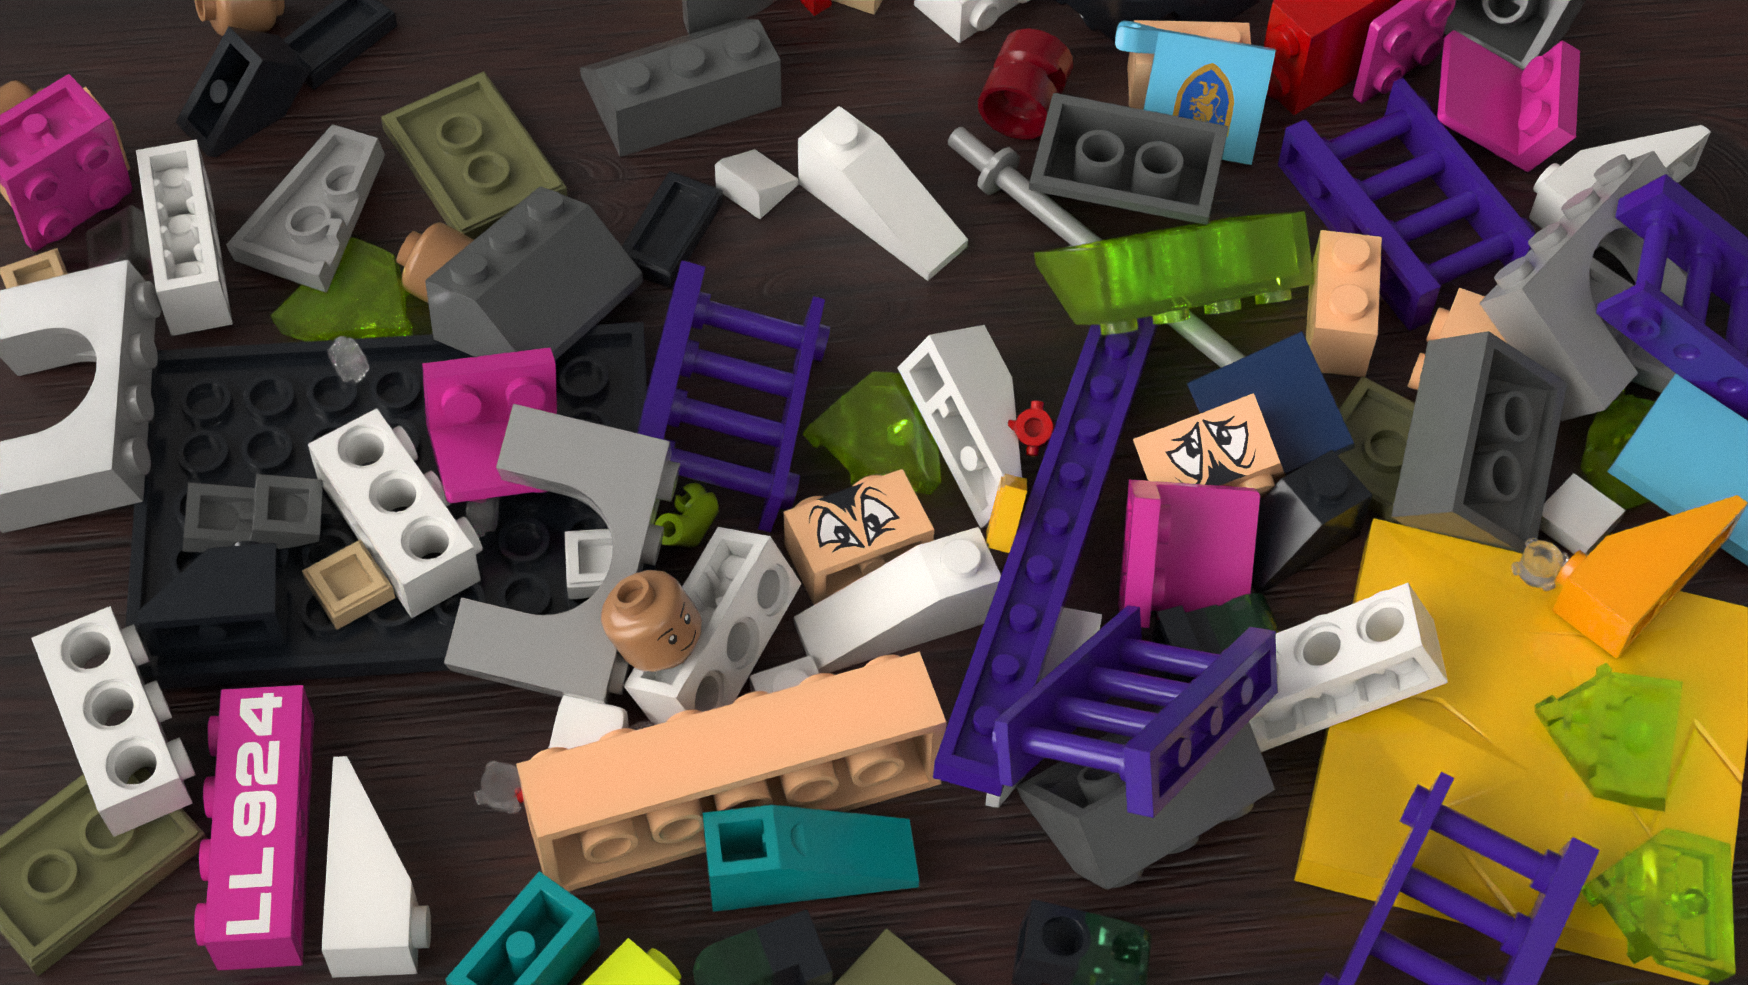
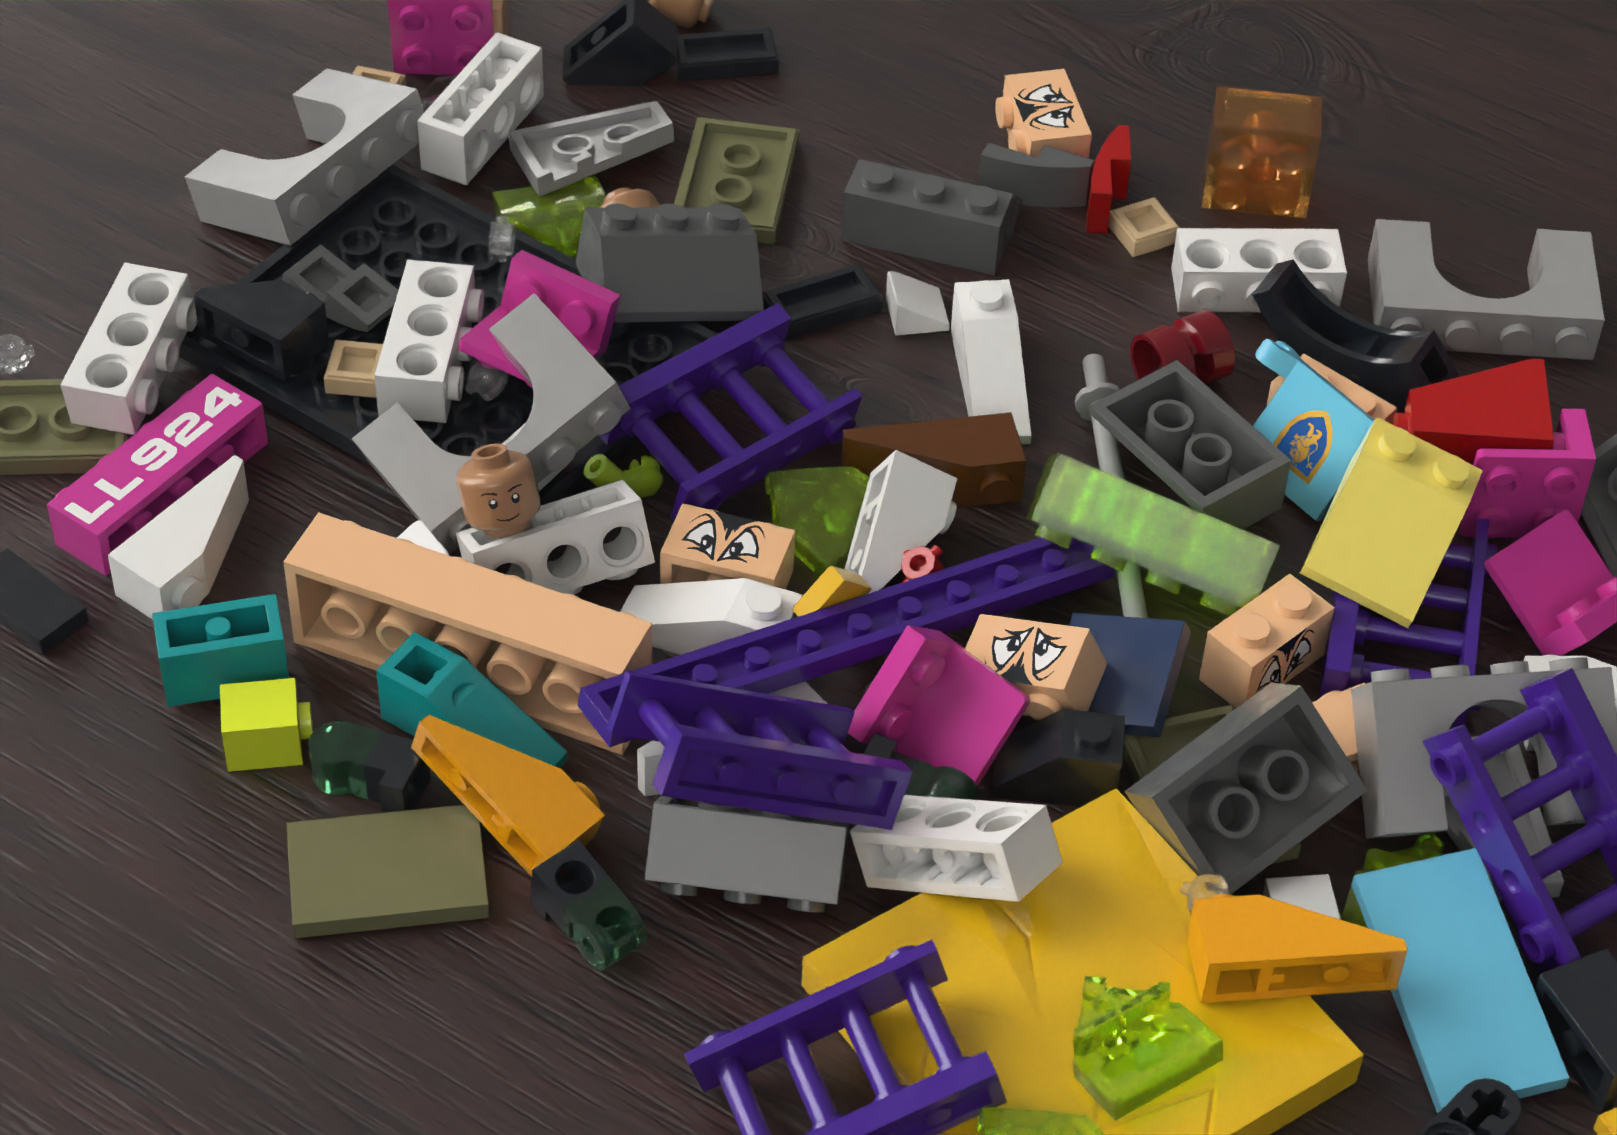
camera: 40 degrees right, 10 degrees down
(948, 901) = (516, 797): none -> light orange slope
(951, 292) = (976, 450): none -> reddish brown slope
(1353, 129) = (1391, 522): none -> light yellow slope

